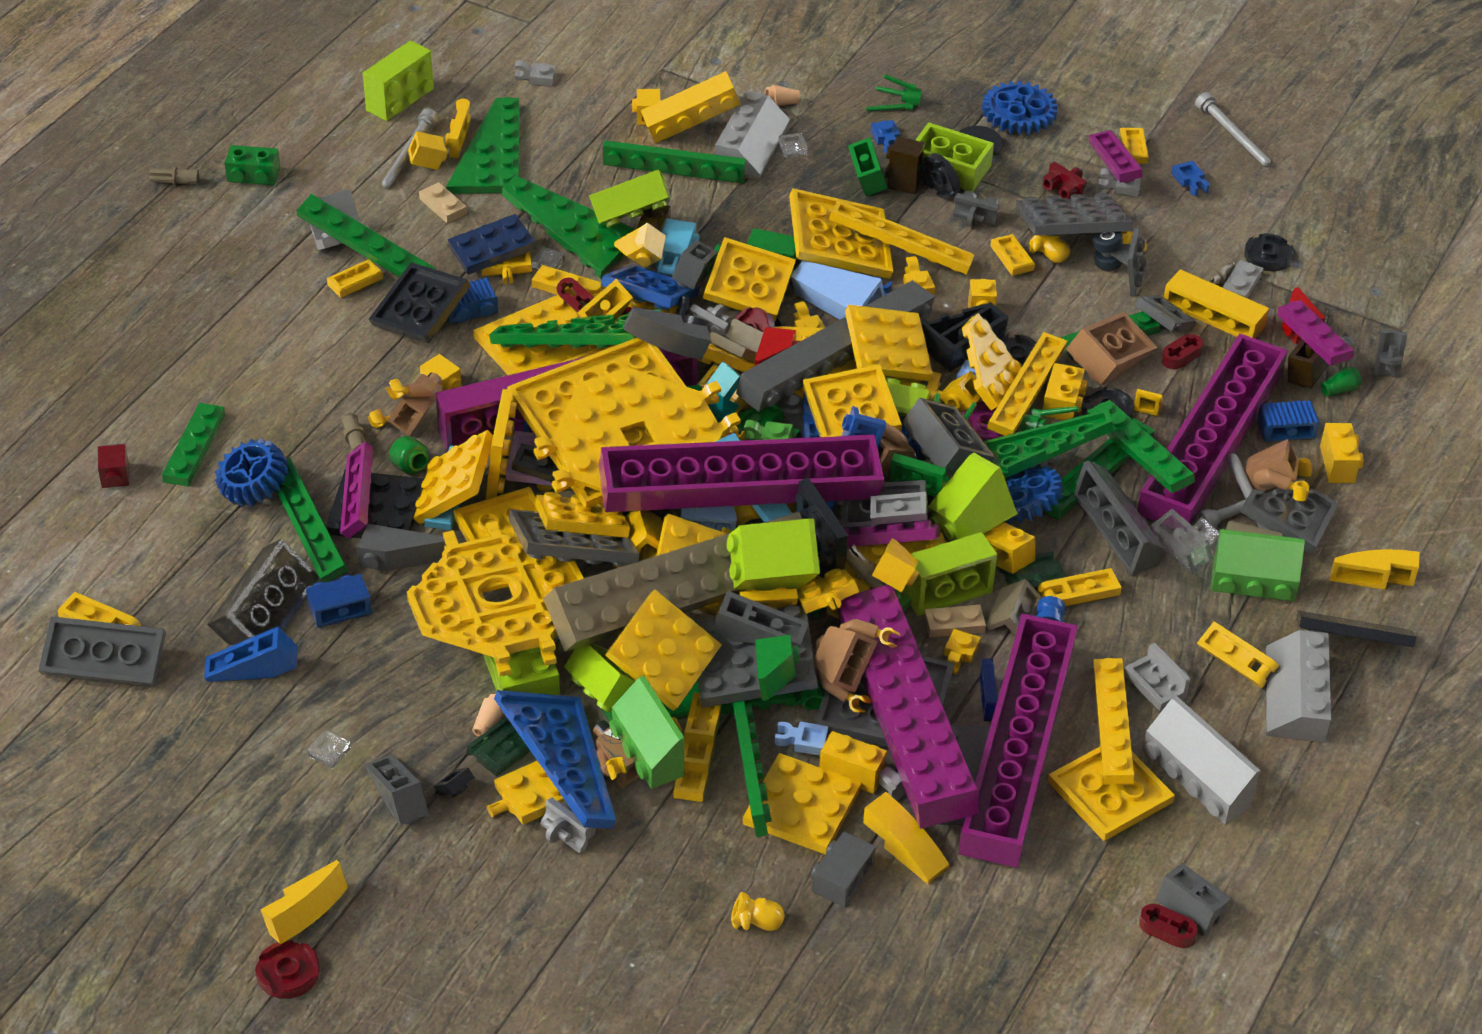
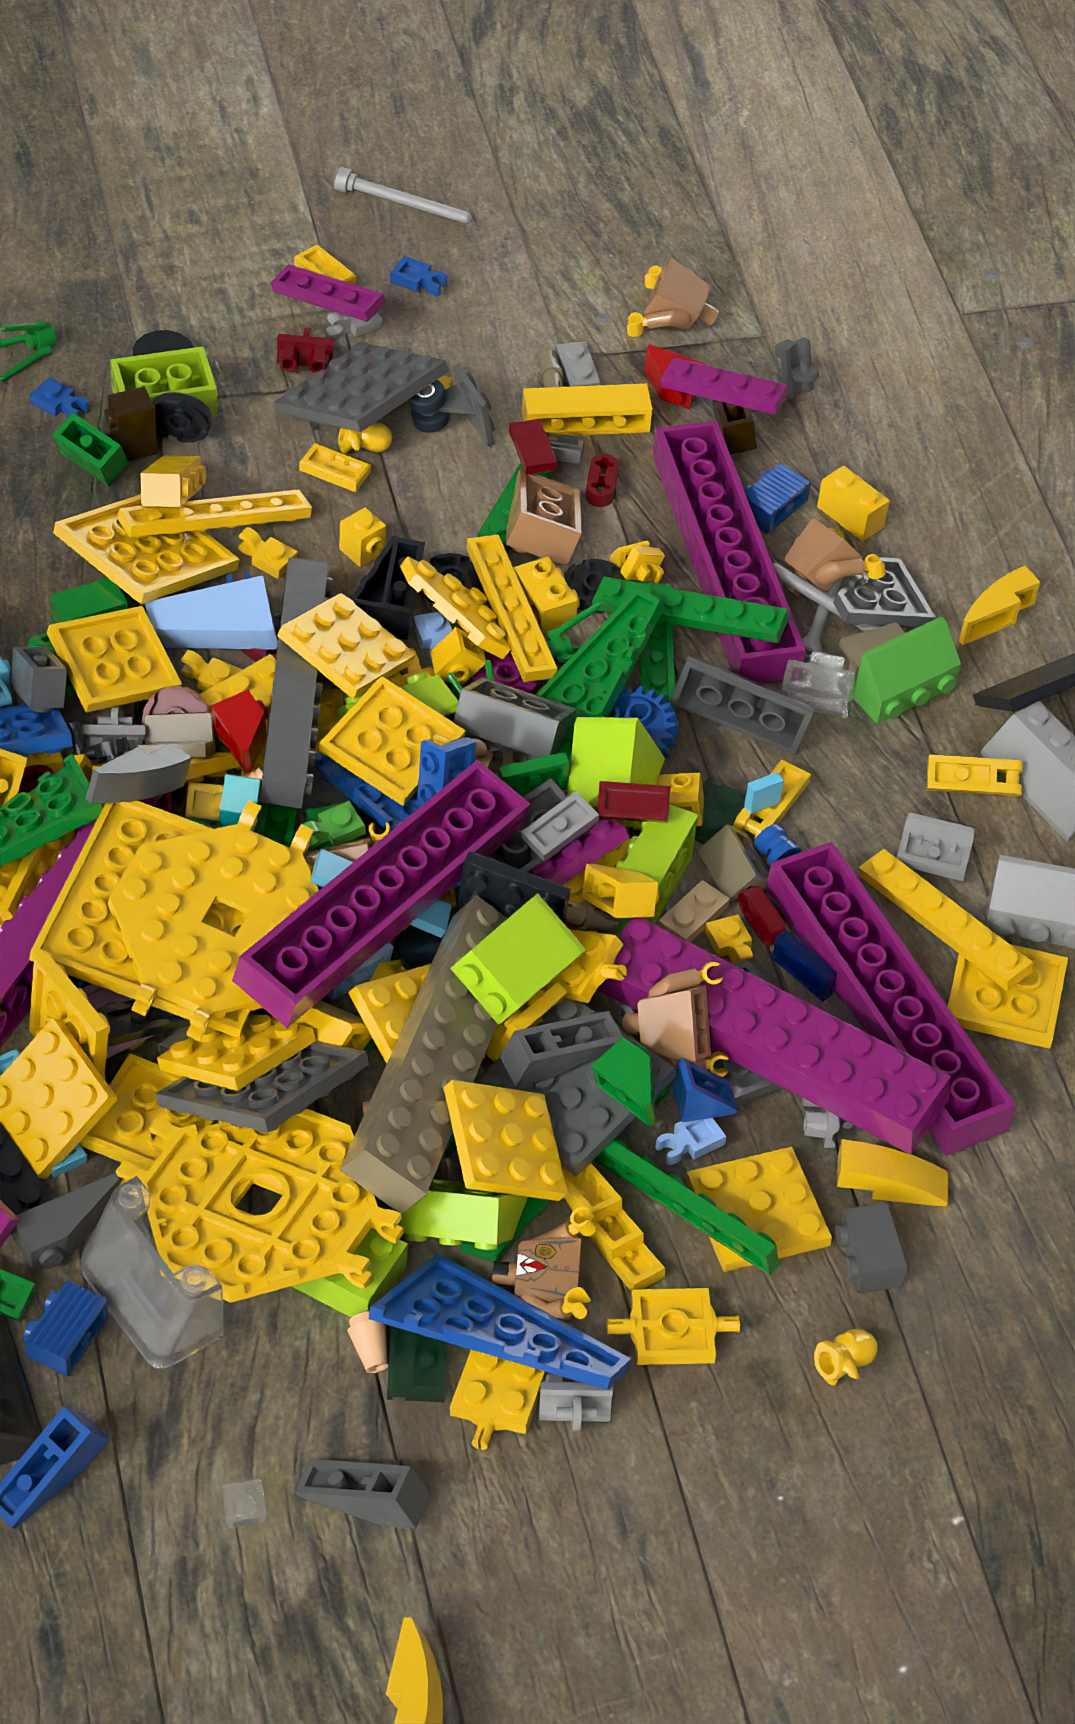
camera: 45 degrees left, 5 degrees up
(394, 622) = (158, 1310): none -> clear windscreen
(454, 782) = (415, 1440): black plate -> none
(648, 734) = (582, 1241): slope -> none
(671, 827) = (673, 1326): none -> yellow plate
(828, 710) = (701, 1093): none -> blue slope
(853, 760) = (767, 1128): yellow brick -> none
(890, 204) = (172, 480): none -> yellow brick
(957, 520) = (633, 801): none -> dark red tile
(976, 210) = (247, 436): dark grey hips -> none
(995, 643) = (761, 915): none -> dark red beam
(1019, 107) = (167, 288): blue gear -> none
(1068, 575) = (763, 792): none -> medium azure tile
(1143, 302) = (532, 446): none -> dark red tile
(1147, 408) = (643, 564): none -> yellow tile
(1269, 252) = (569, 320): black tile -> none
(1343, 381) = (777, 426): green cone -> none
(1350, 273) = (675, 300): none -> medium nougat torso

